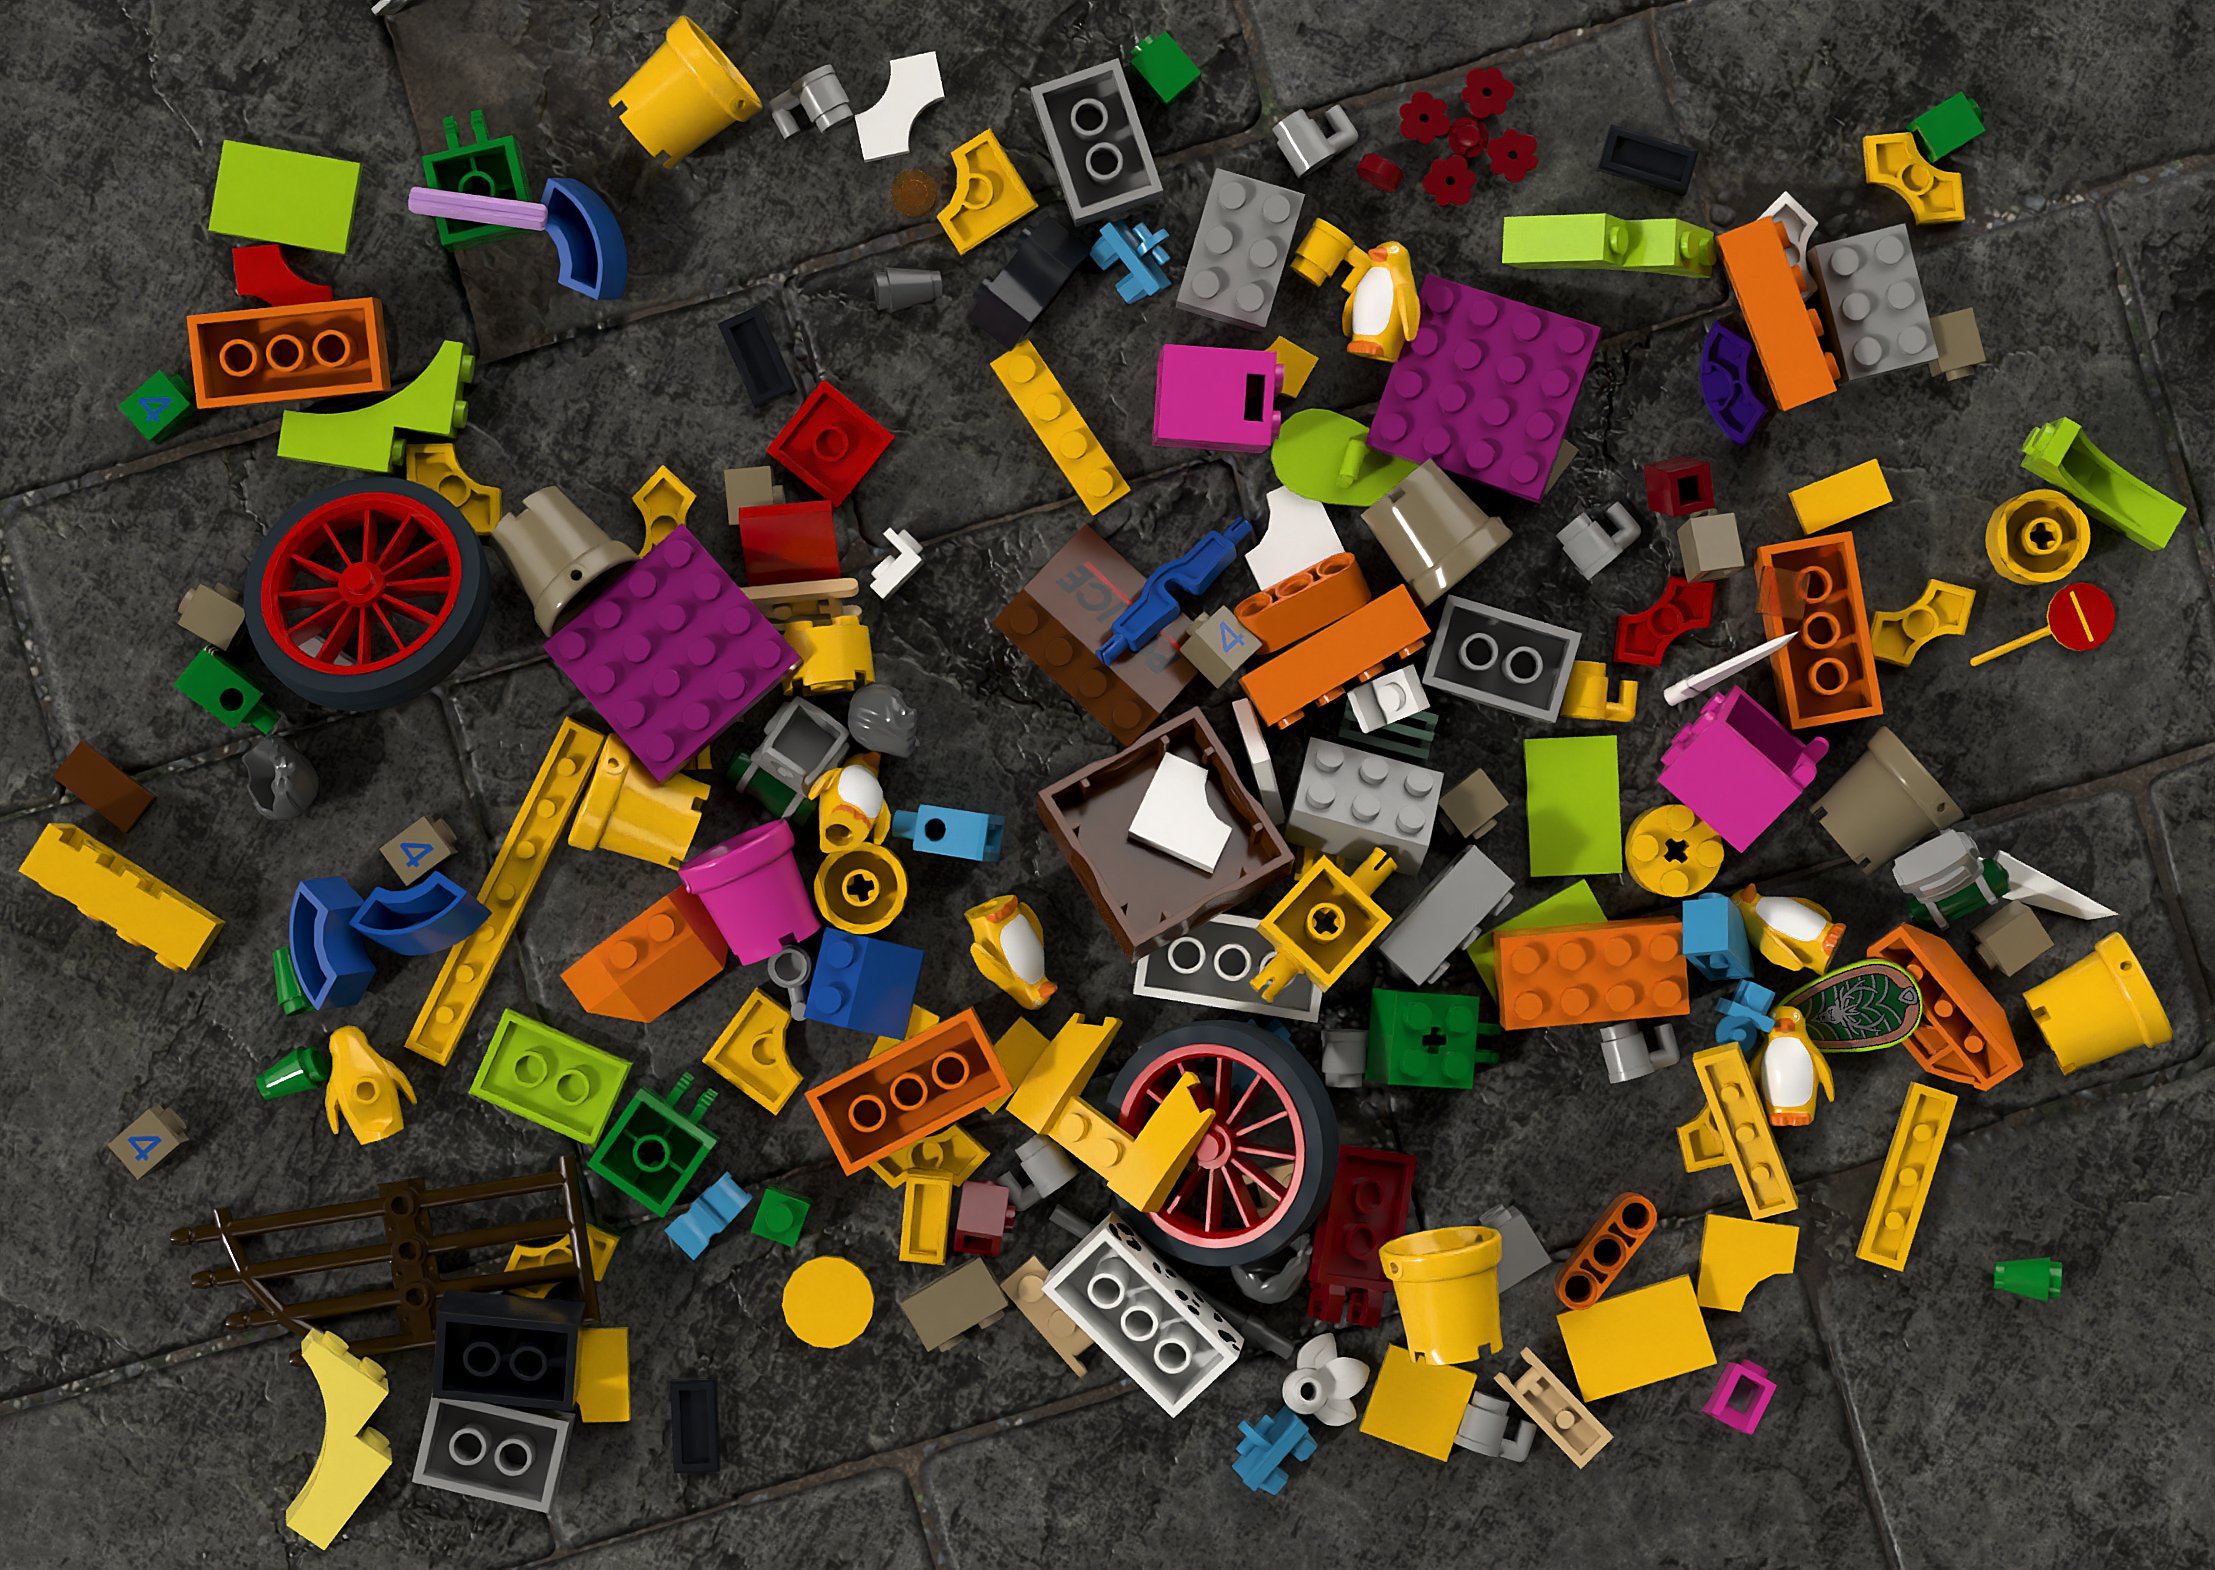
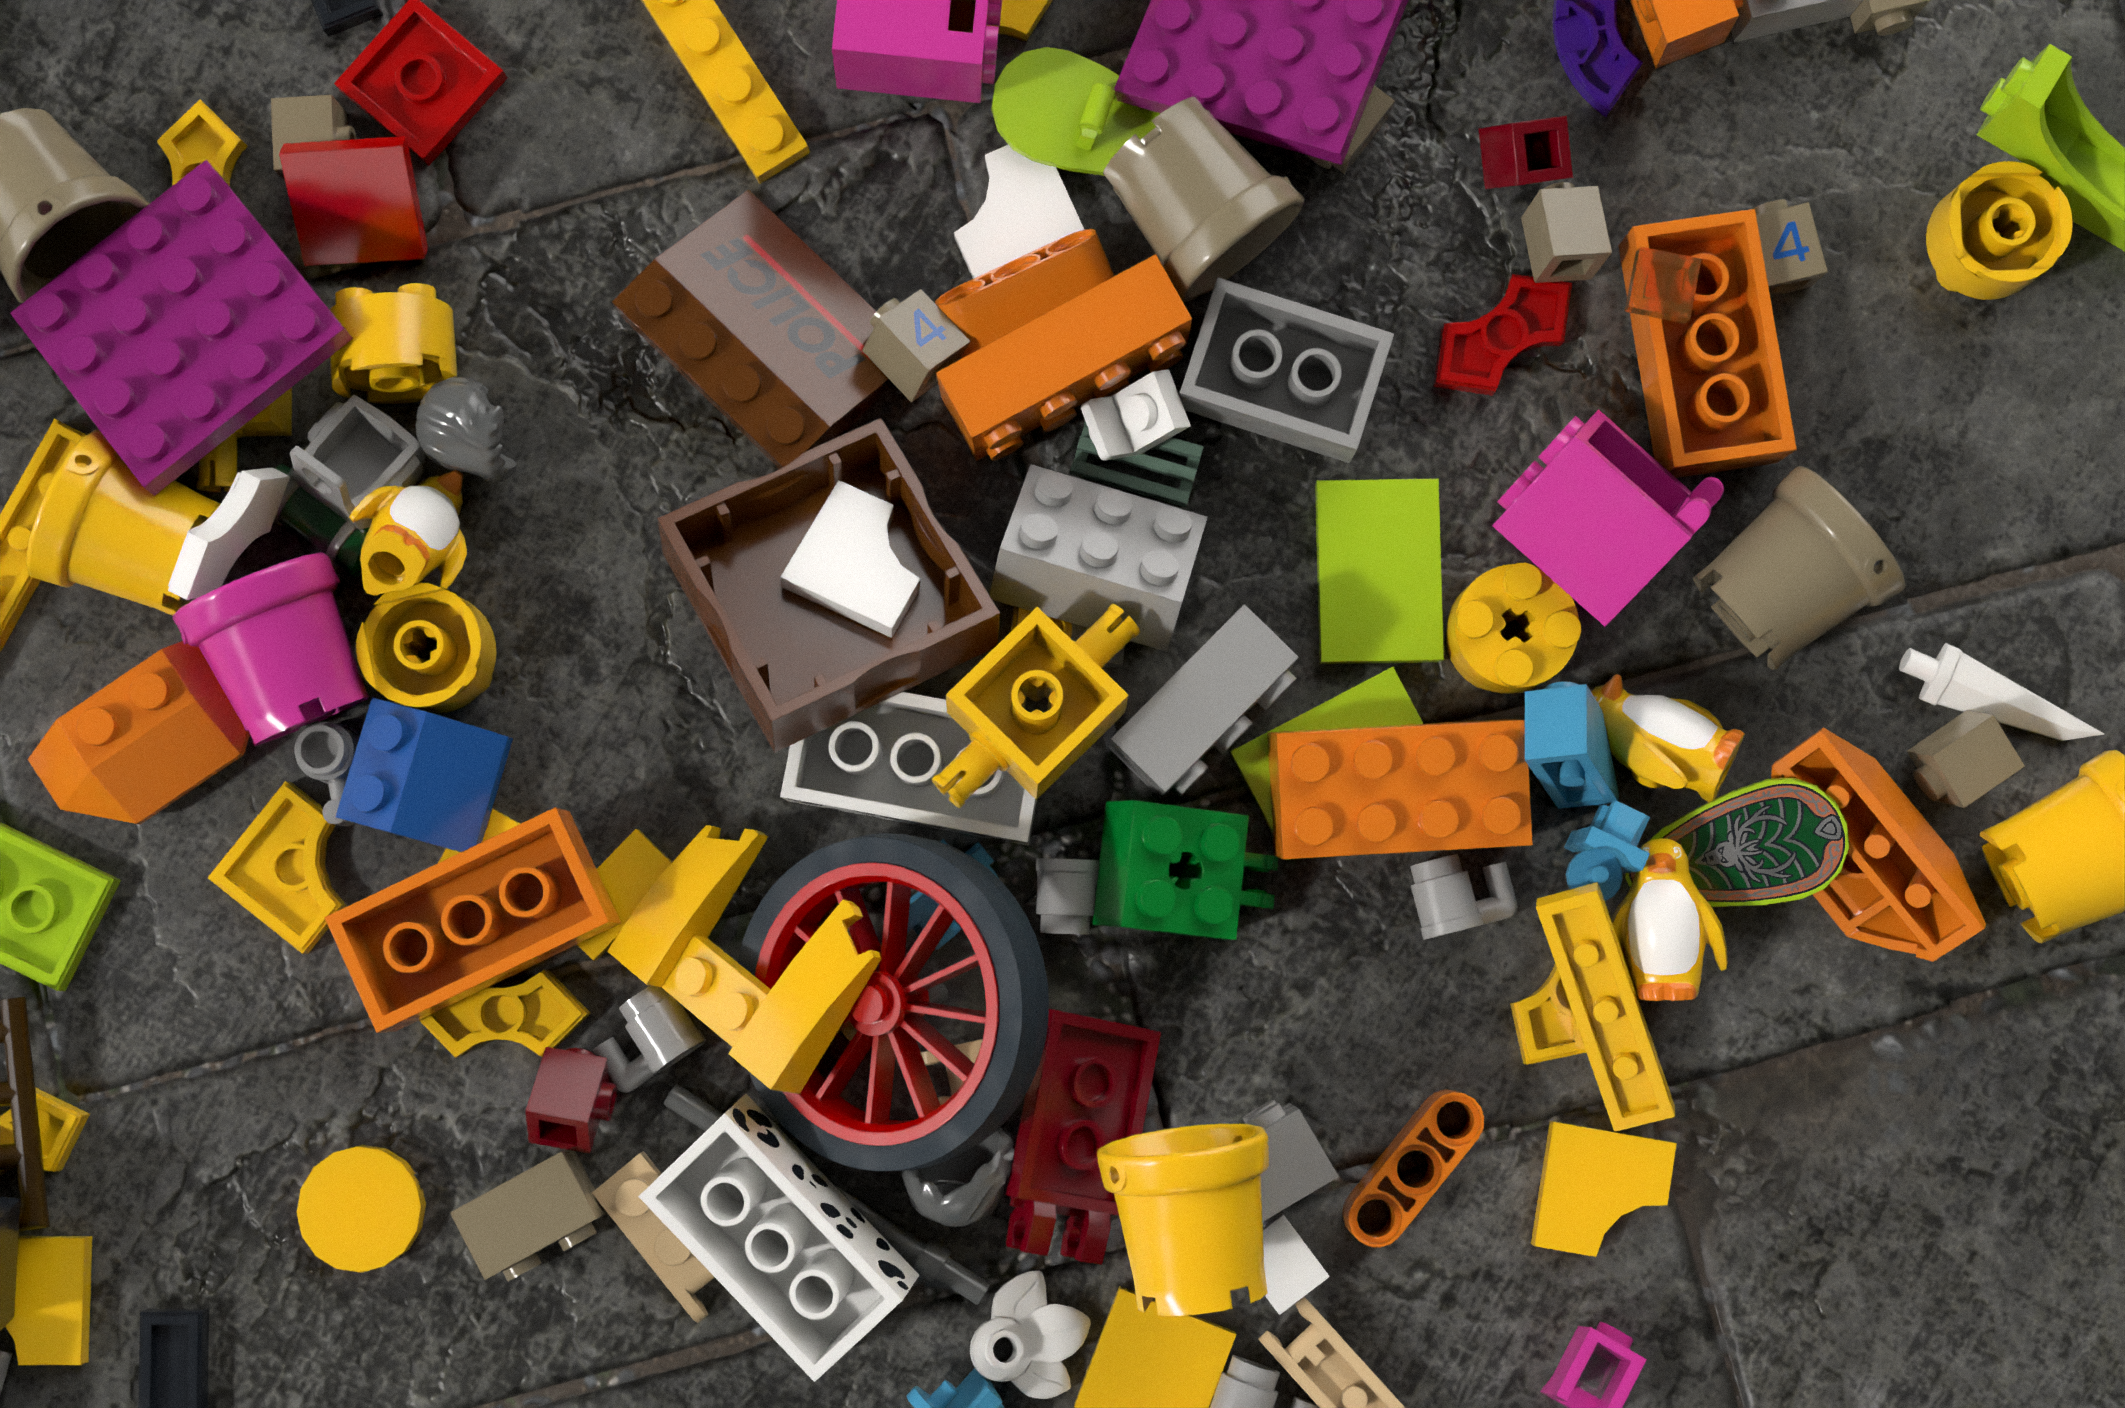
camera: 10 degrees right, 5 degrees down
(658, 1119) = (170, 984): green hinge -> none
(708, 1215) = (204, 1083): dark azure leg -> none
(717, 809) = (221, 539): none -> white tile
(782, 1215) = (299, 1088): green brick -> none
(804, 601) = (371, 269): tan hinge -> none
(894, 573) = (497, 241): white bracket -> none
(926, 1216) = (496, 1095): yellow tile -> none
(966, 835) = (553, 579): dark azure torso -> none
(1011, 949) = (623, 739): animal -> none
(1156, 606) = (832, 286): blue piece -> none
(1259, 760) = (962, 496): white tile -> none
(1470, 806) = (1242, 564): dark tan brick -> none
(1516, 1324) = (1288, 1264): none -> white brick
(1587, 695) = (1400, 422): yellow piece -> none
(1590, 544) = (1408, 230): light grey piece -> none
(1636, 1338) = (1454, 1289): yellow tile -> none
(1696, 684) = (1552, 409): white bar -> none
(1840, 497) = (1737, 177): yellow tile -> none
(1877, 551) = (1789, 246): none -> dark tan brick
(1906, 1176) = (1822, 1077): yellow plate -> none
(1937, 612) = (1865, 331): yellow tile -> none
(1948, 880) = (1882, 673): light grey piece -> none
(2029, 1277) = (1990, 1221): green cone -> none
(2077, 617) = (2045, 342): red piece -> none

